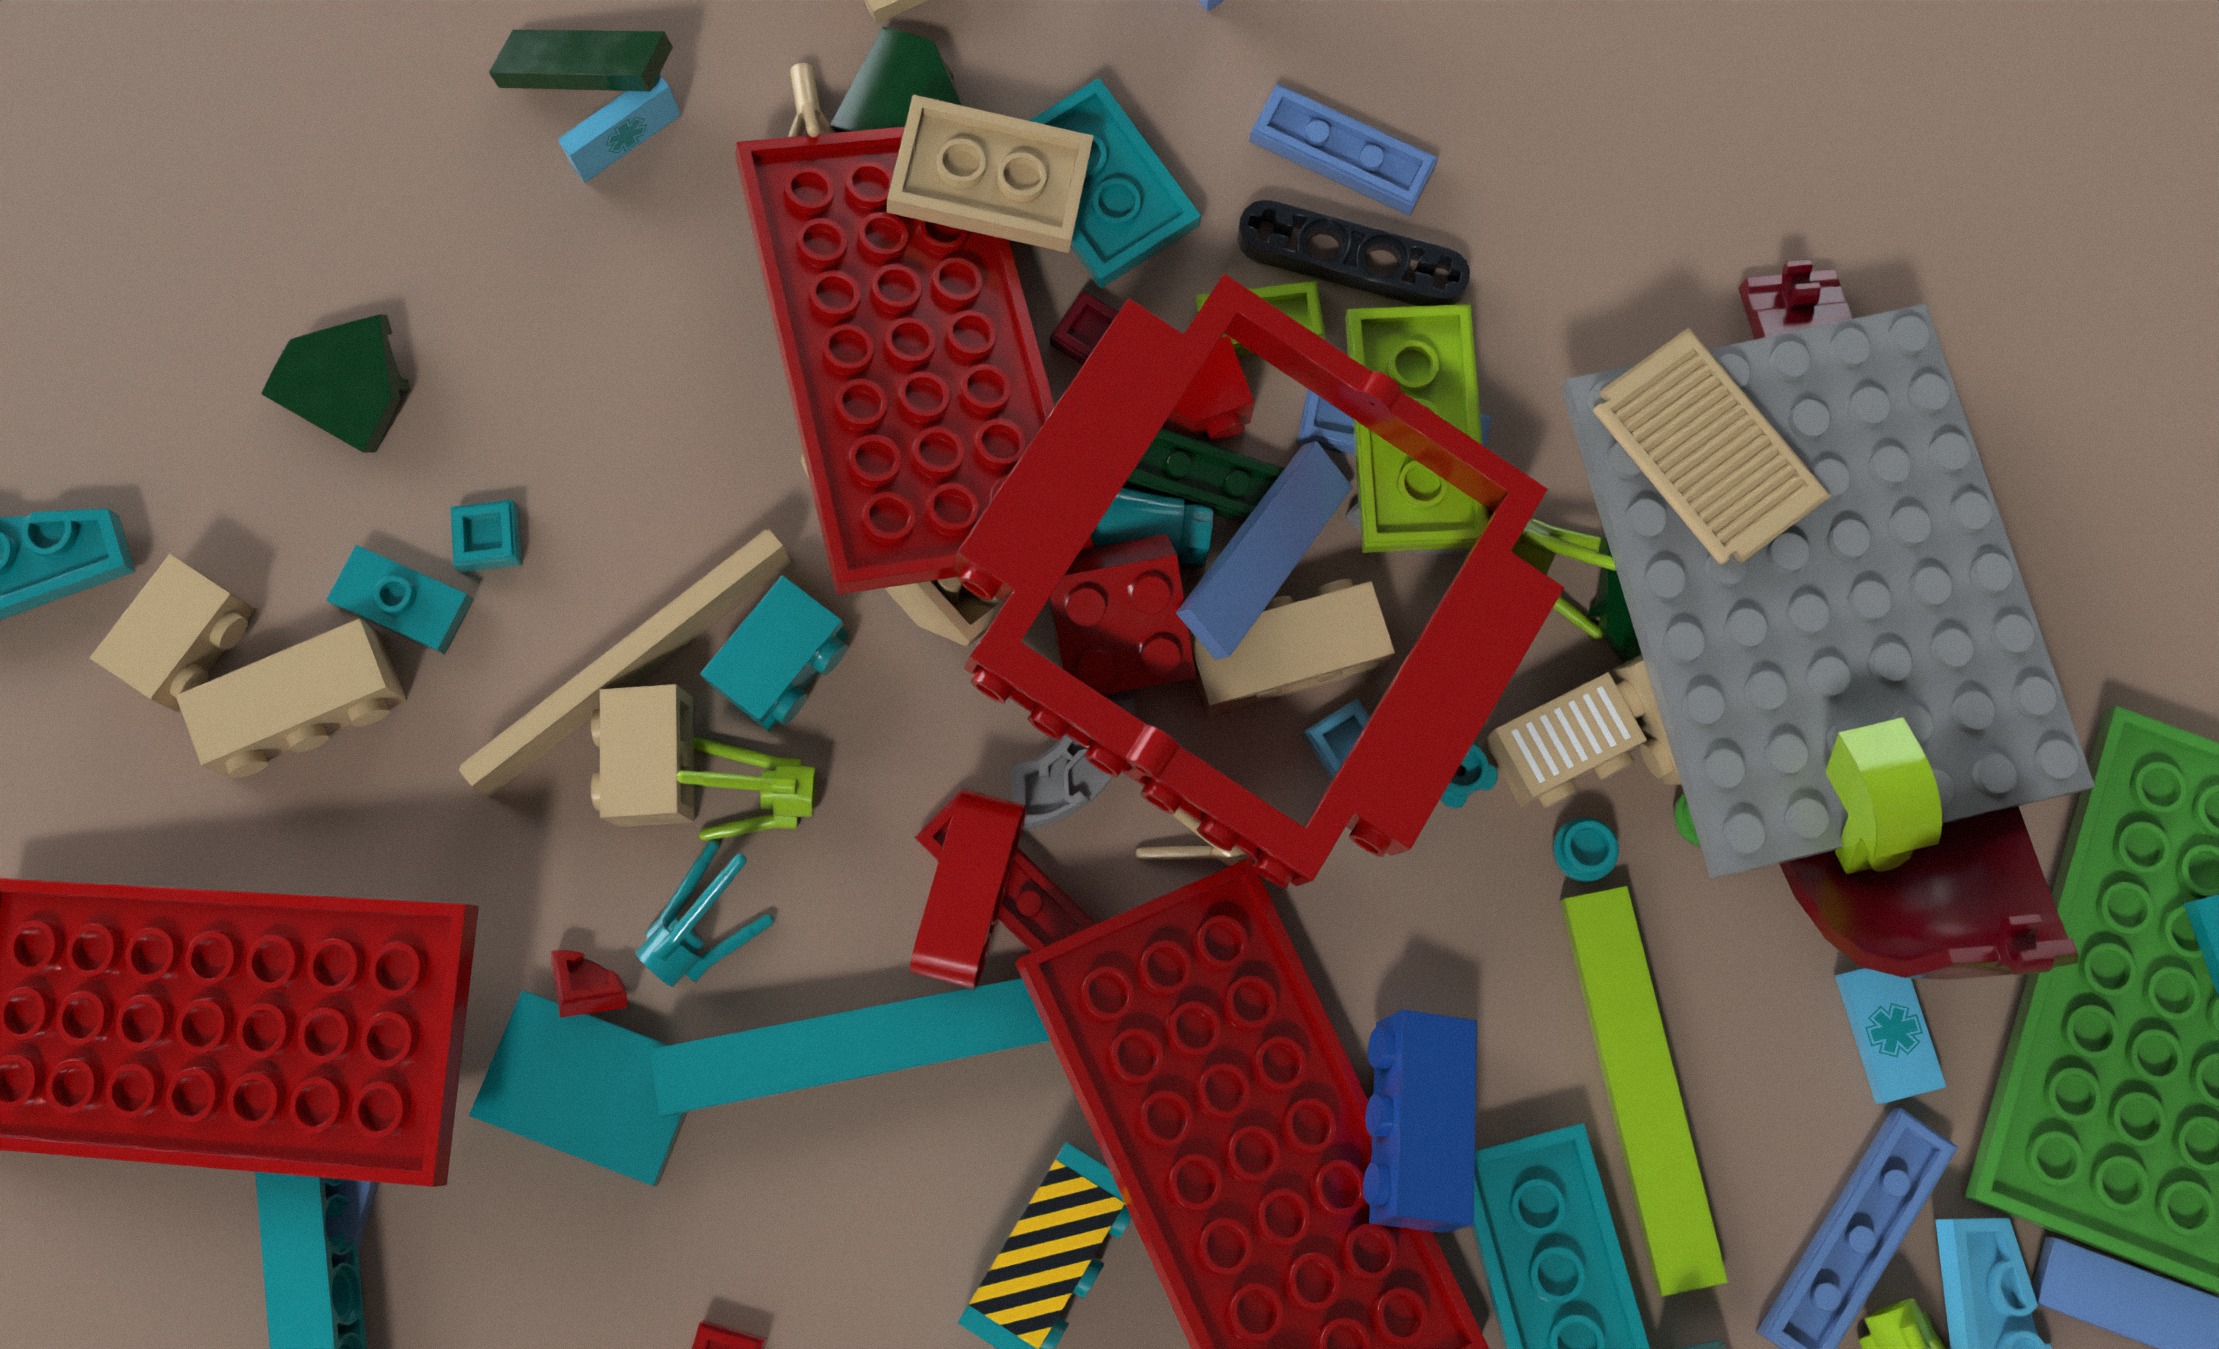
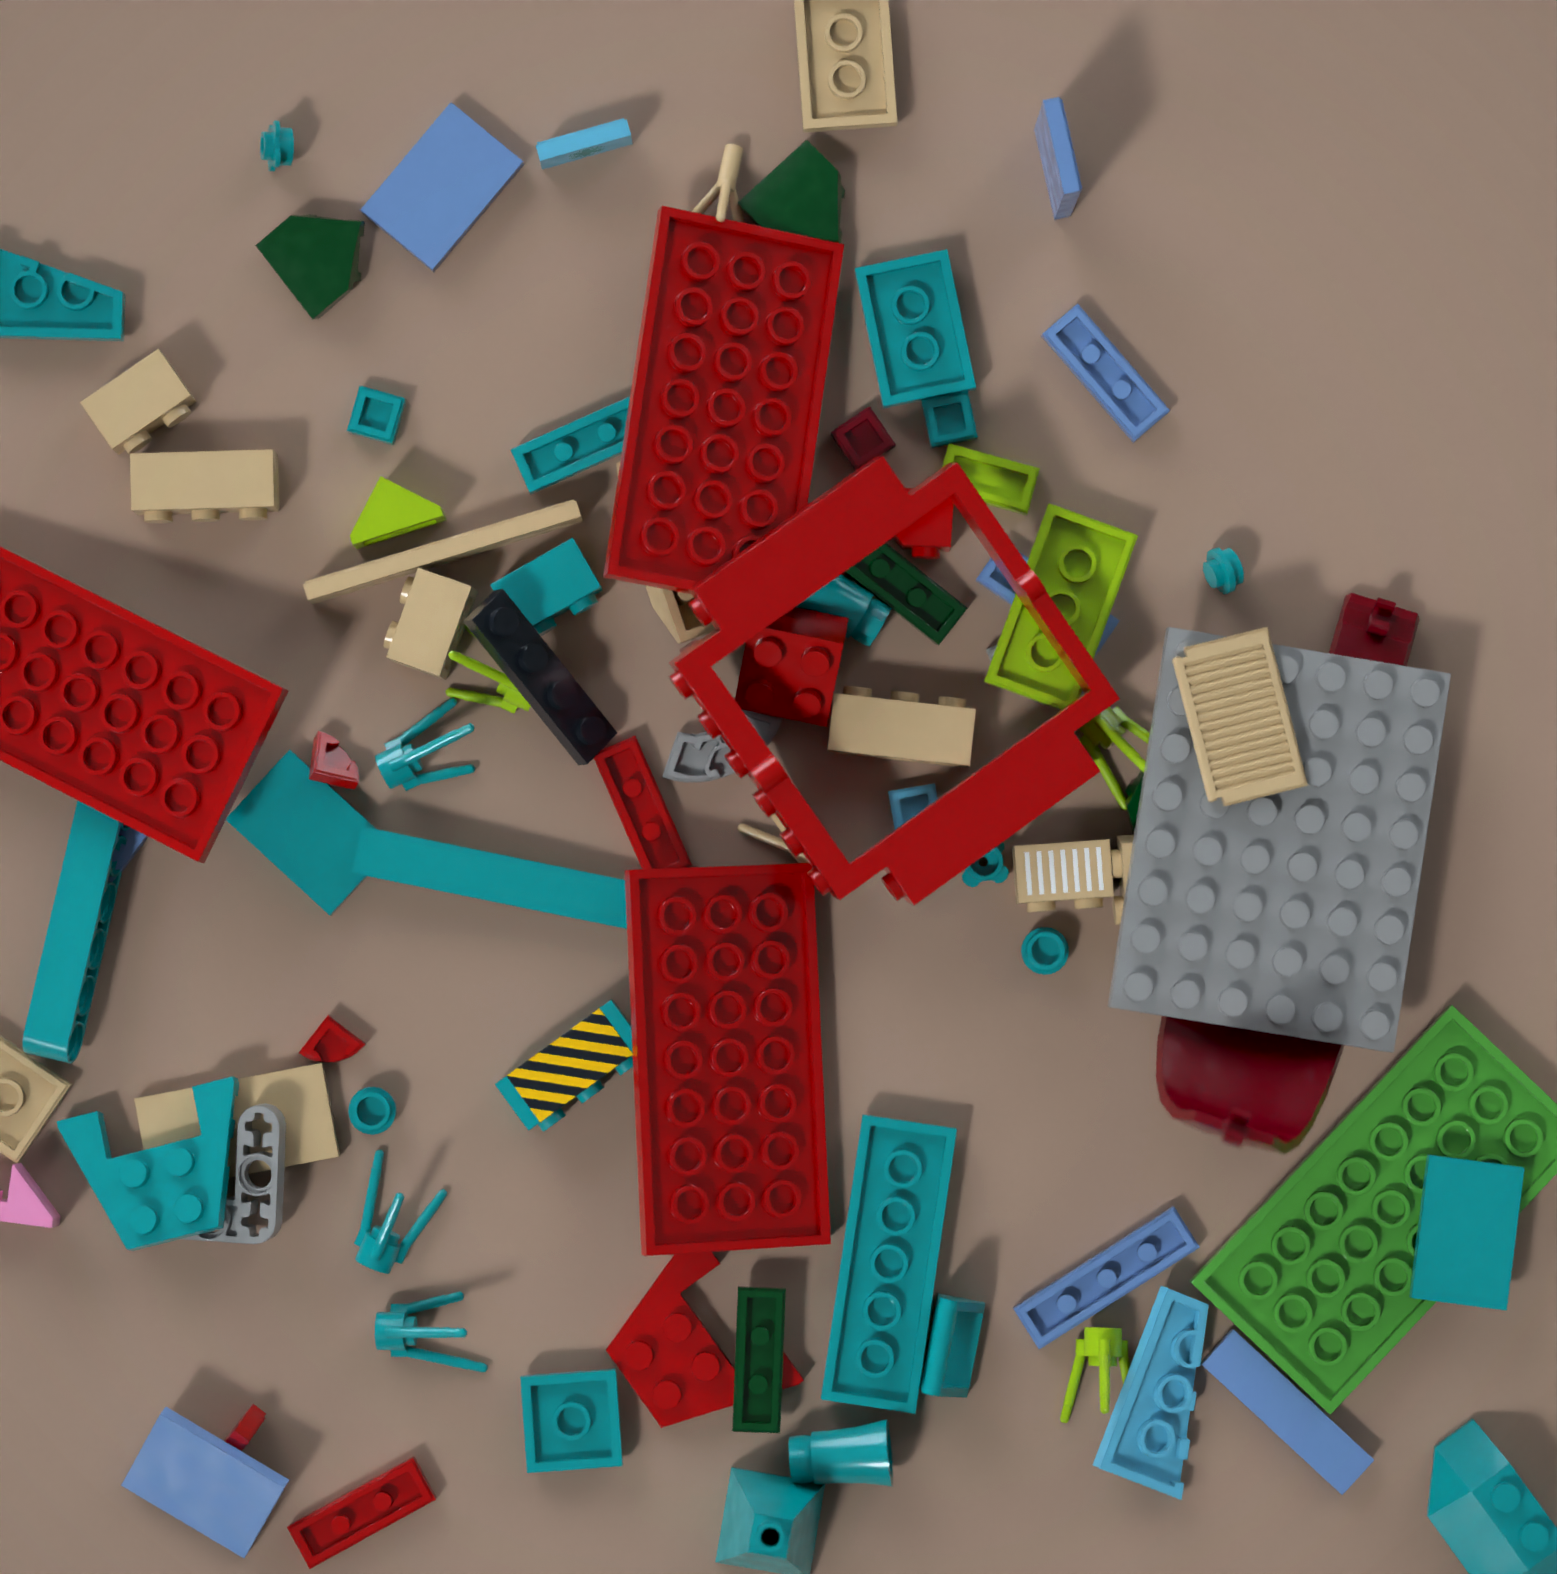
camera: 20 degrees right, 10 degrees up
(246, 269) = (277, 146): none -> teal plate
(399, 599) = (300, 438): teal plate -> none
(468, 244) = (442, 186): none -> medium blue tile
(547, 641) = (393, 513): none -> lime slope
(581, 60) = (575, 83): dark green tile -> none
(741, 476) = (573, 447): none -> teal plate
(807, 761) = (540, 677): none -> black plate
(968, 889) = (614, 806): red beam -> none
(989, 173) = (834, 301): tan plate -> none
(1183, 270) = (949, 419): none -> teal tile
(1264, 551) = (913, 656): medium blue tile -> none
(1355, 244) = (1080, 452): black beam -> none
(1422, 1122) = (849, 1082): blue brick -> none
(1587, 308) = (1223, 570): none -> teal plate
(1643, 1092) = (1009, 1123): lime tile -> none
(1887, 795) = (1235, 1000): lime brick -> none
(1890, 1034) = (1191, 1165): medium azure tile -> none

